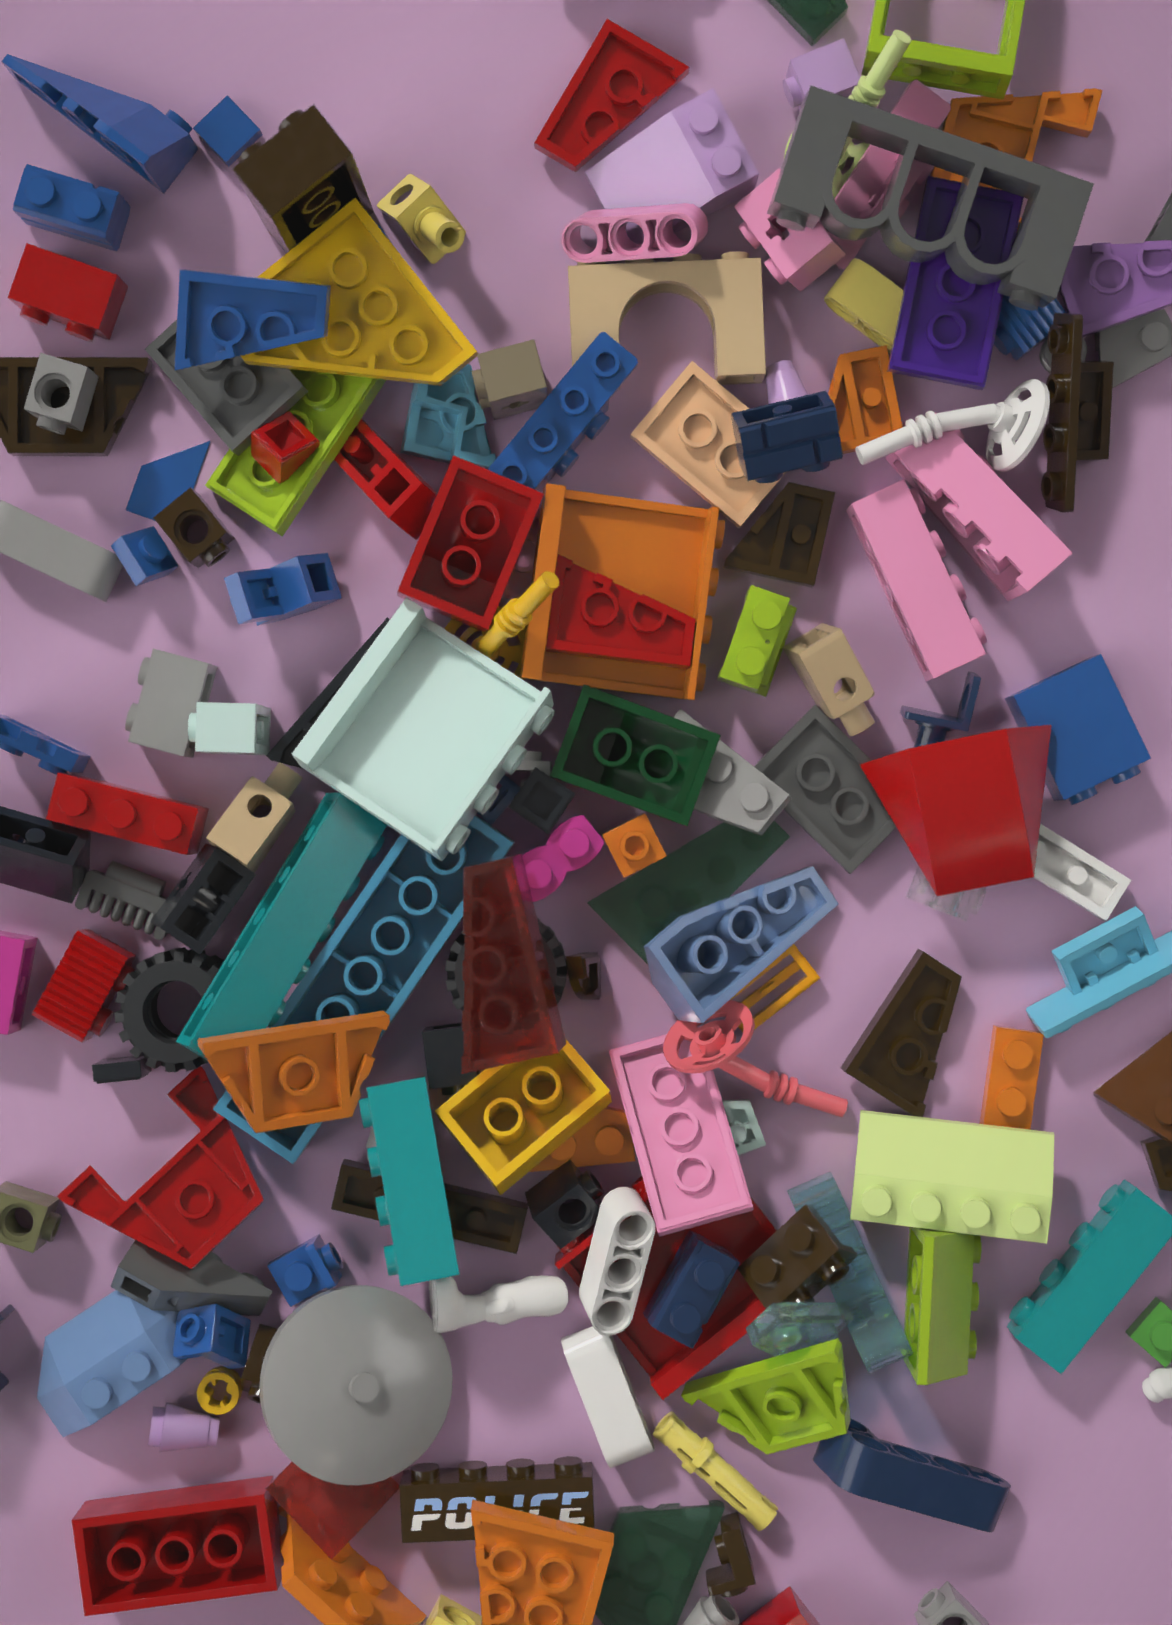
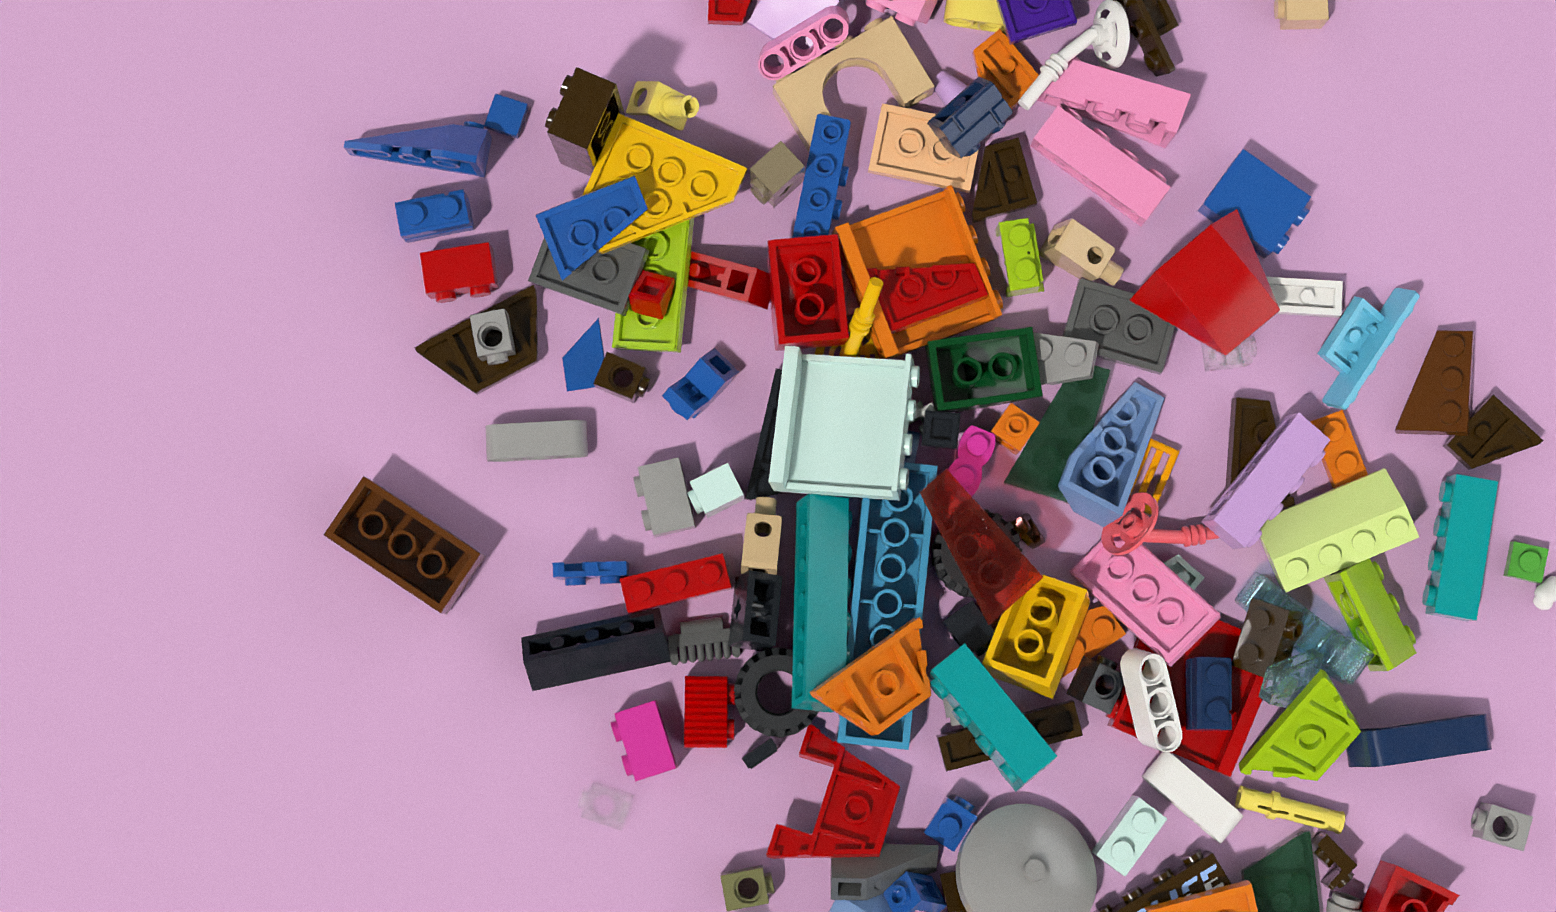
camera: 30 degrees left, 5 degrees down
(144, 555) = (598, 412): blue plate -> none
(447, 422) = (745, 225): medium azure slope -> none
(500, 1304) = (1060, 791): white piece -> none
(505, 1400) = (1129, 835): none -> light aqua brick
(902, 1074) = (1267, 481): none -> lavender brick
(935, 725) = (1164, 250): dark blue bracket -> none

